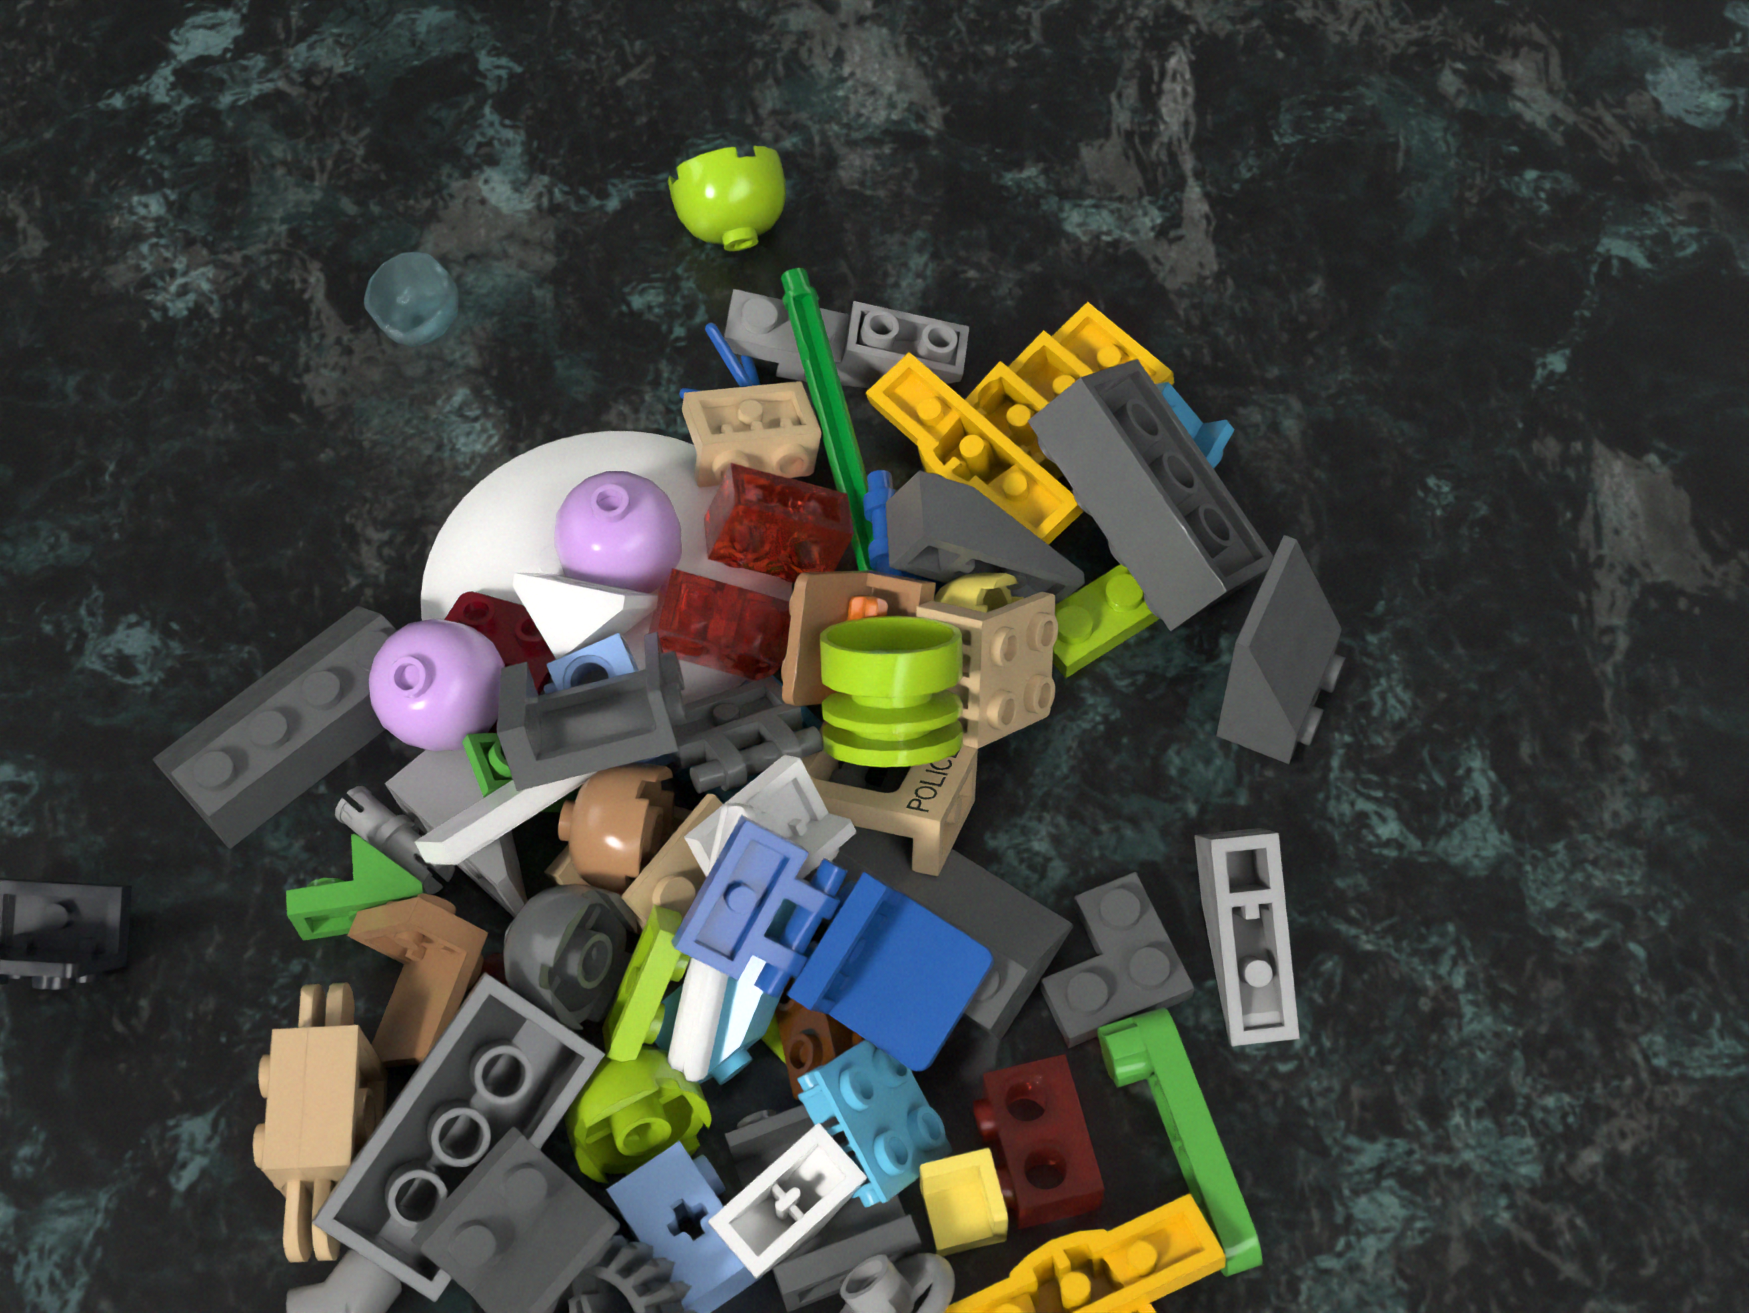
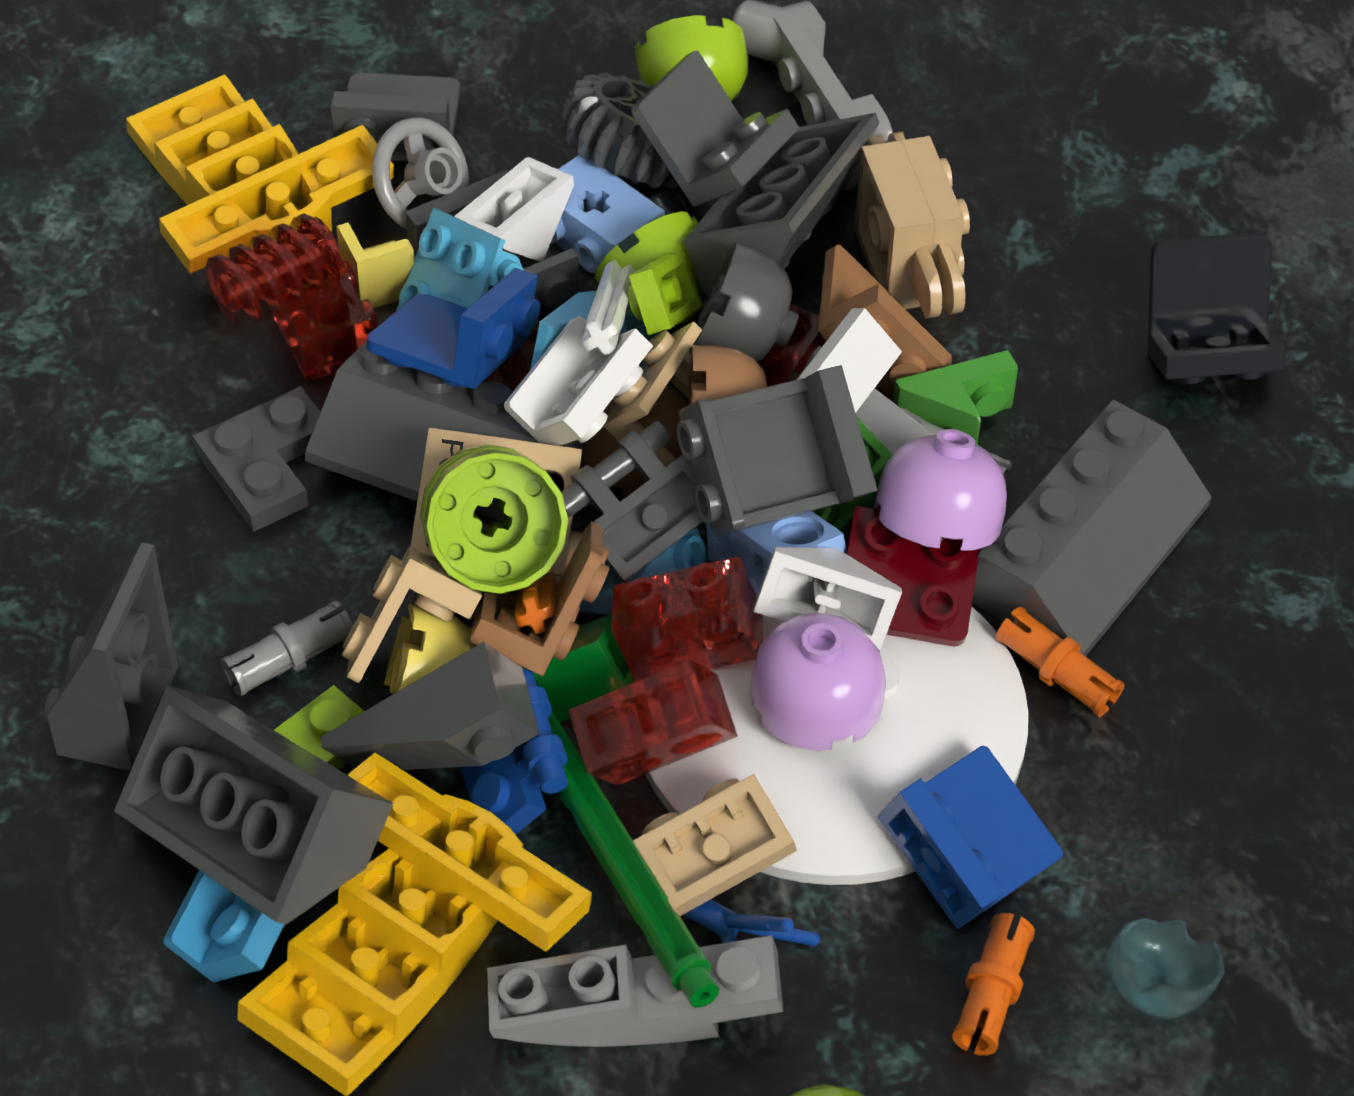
camera: 165 degrees right, 10 degrees down
(376, 585) = (1060, 661): none -> orange pin
(533, 425) = (970, 835): none -> blue bracket
(551, 326) = (993, 984): none -> orange pin
(742, 898) = (569, 287): plate -> none
(1084, 1113) = (274, 265): none -> clear red piece
(1107, 718) = (286, 648): none -> light grey pin
(1152, 1050) = (224, 383): bright green beam -> none
(1248, 933) = (147, 483): light grey slope -> none

